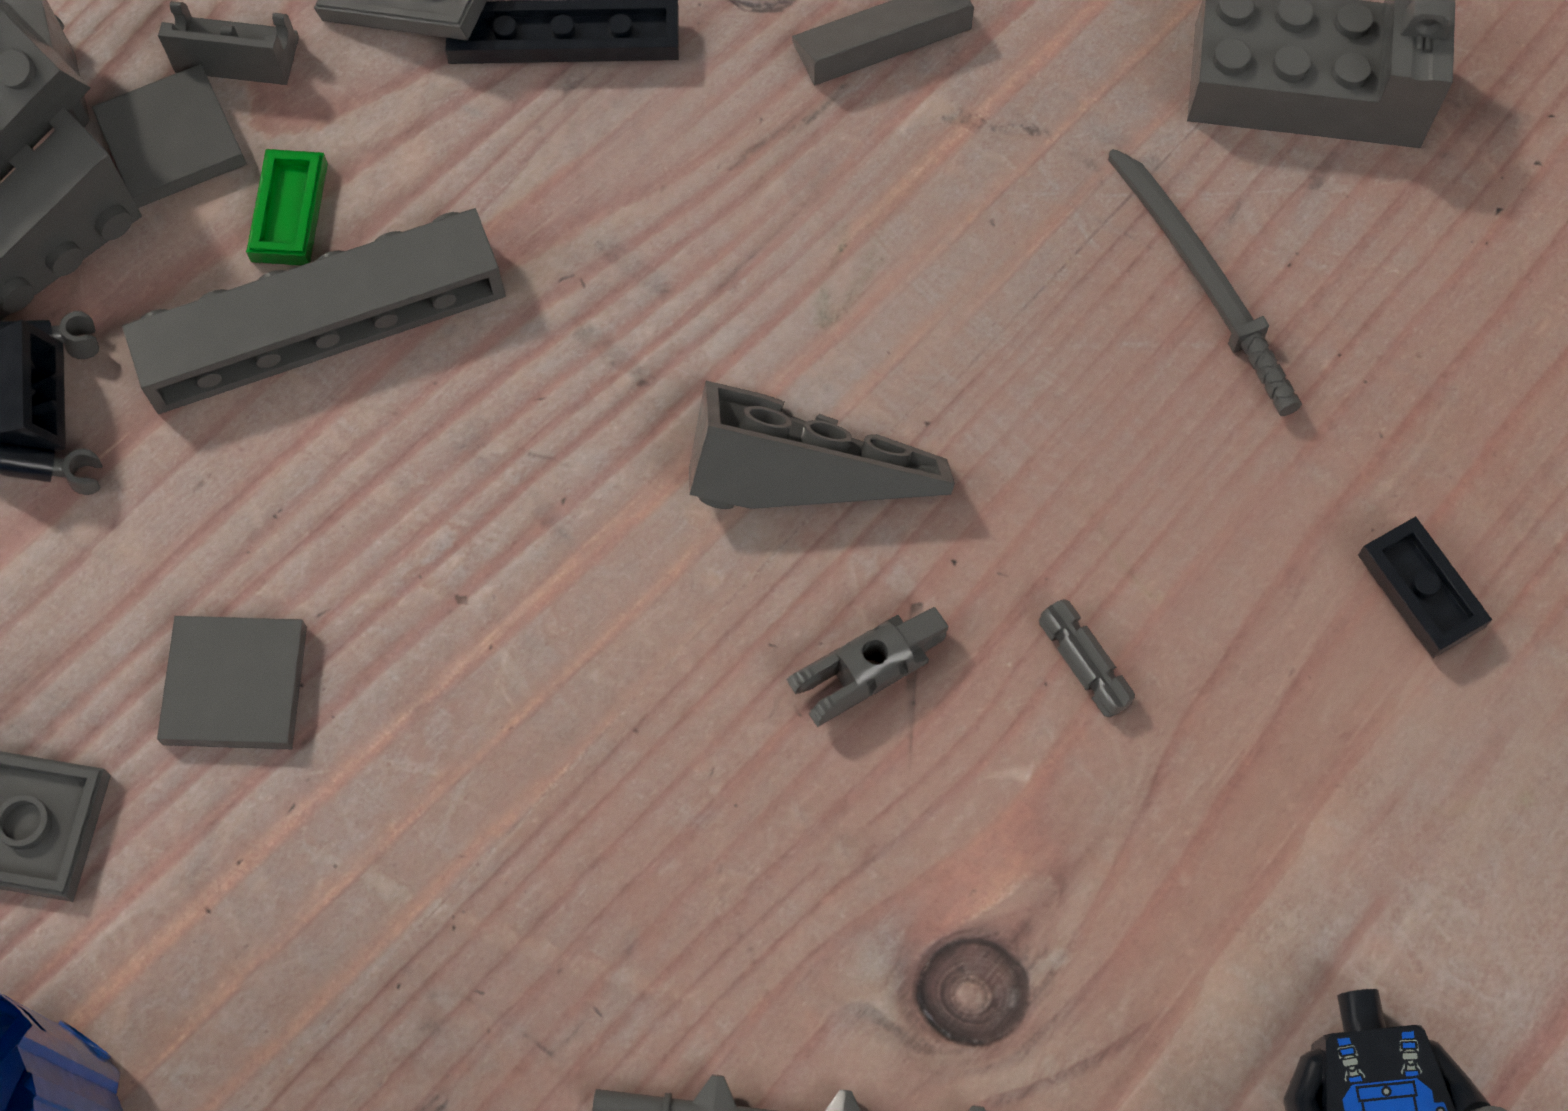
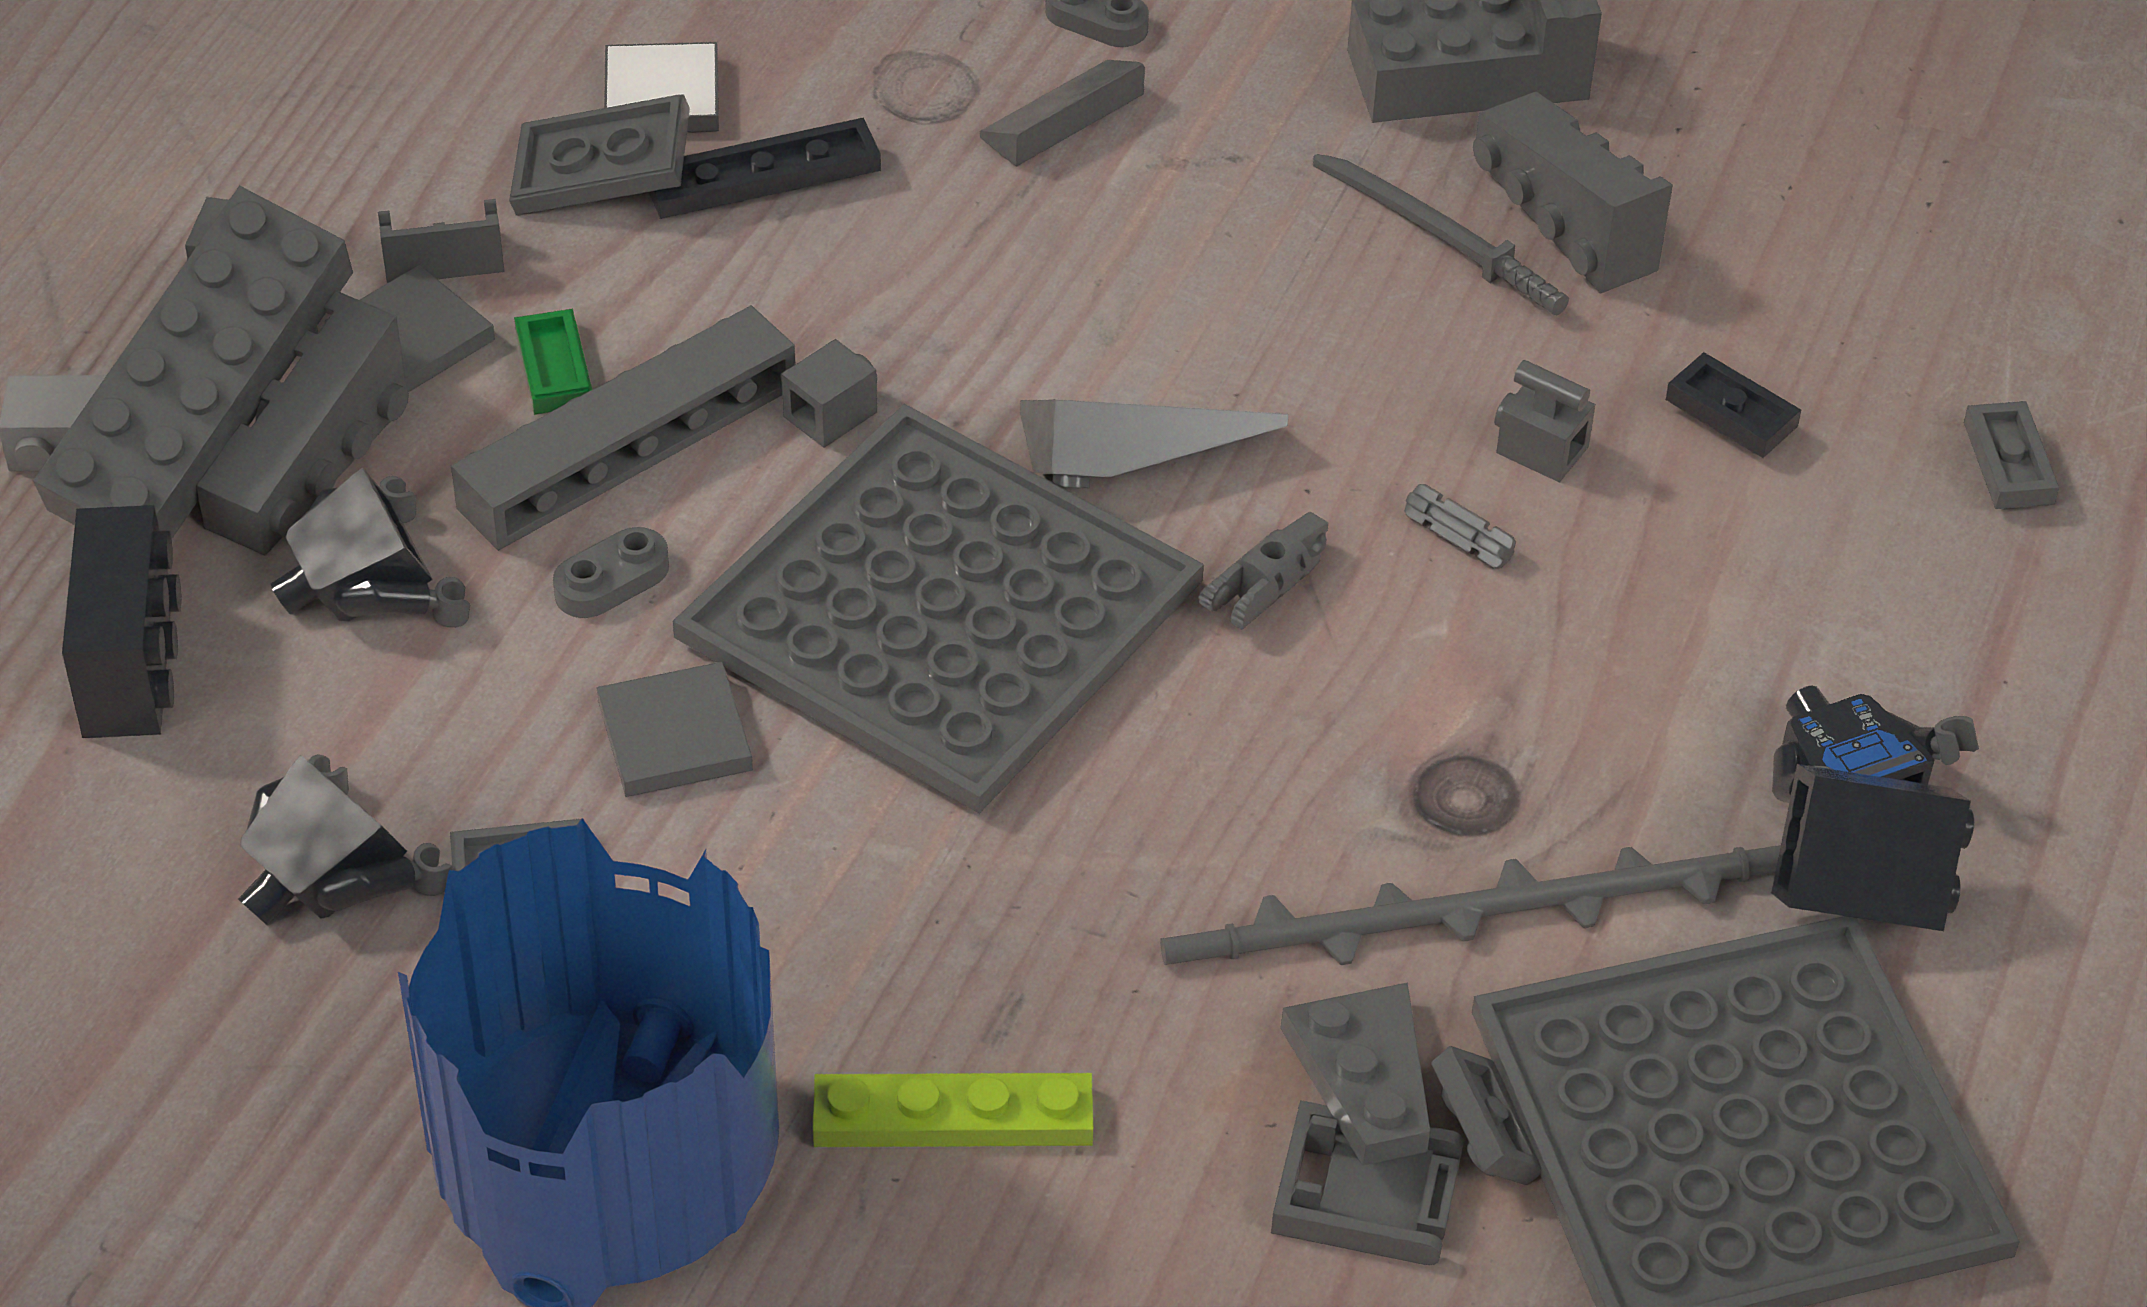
camera: 20 degrees left, 20 degrees down
(244, 477) = (616, 572): none -> dark grey plate
(524, 322) = (829, 392): none -> dark grey brick
(536, 612) = (939, 605): none -> dark grey plate
(1214, 562) = (1544, 422): none -> dark grey brick
(1354, 272) = (1575, 189): none -> dark grey wedge

